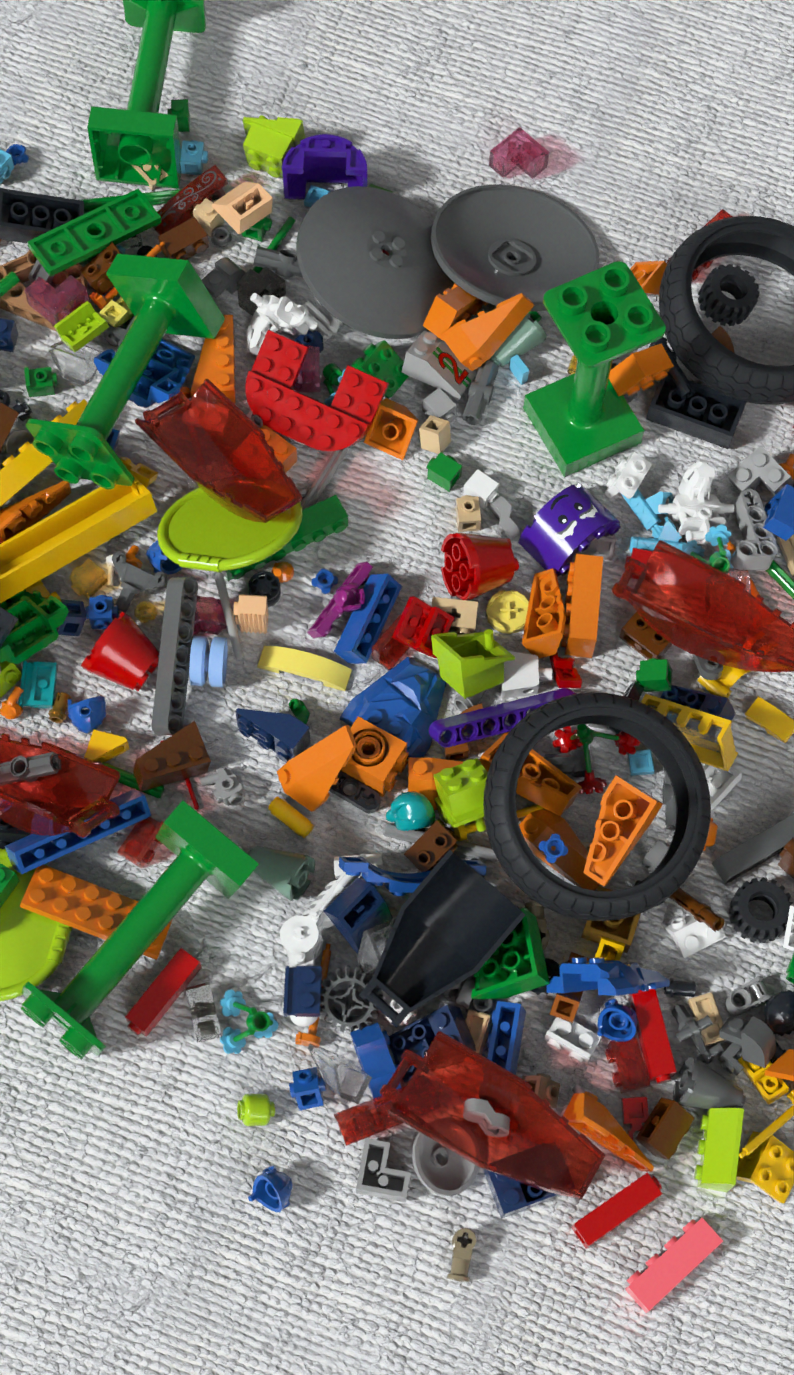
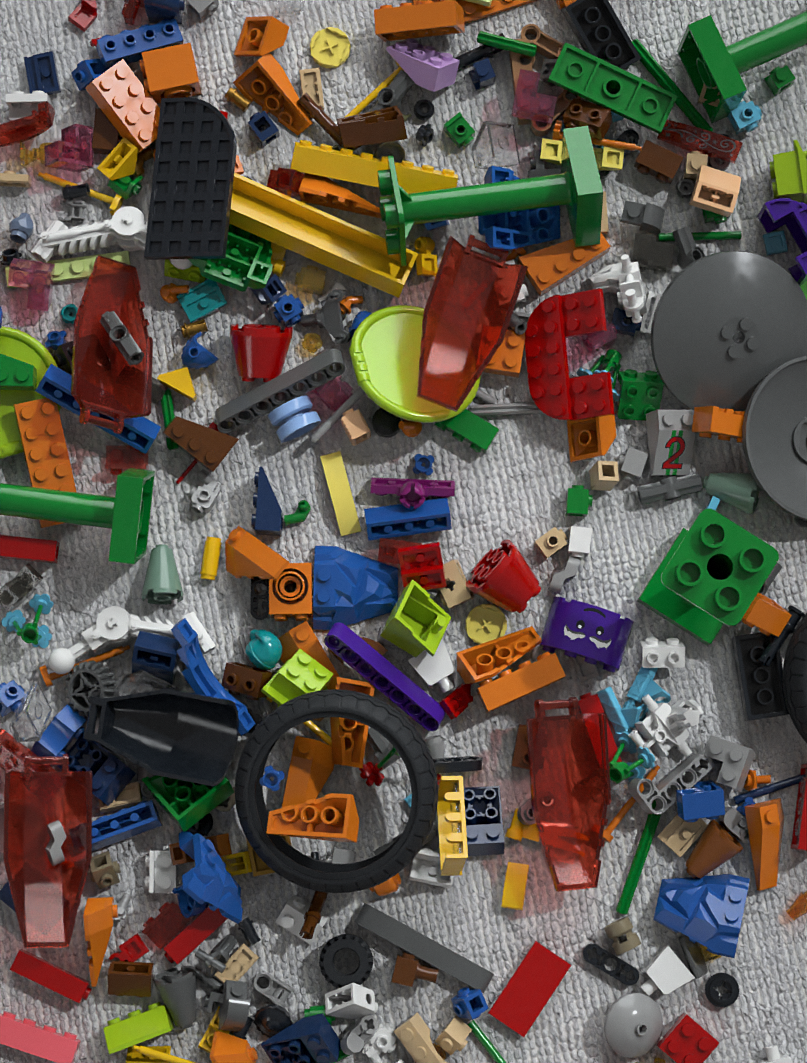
camera: 60 degrees right, 15 degrees up
(81, 327) = (521, 134): lime bracket -> none
(302, 991) = (70, 652): dark blue plate -> none
(481, 337) = (711, 464): orange wedge -> none
(655, 675) = (496, 772): green brick -> none

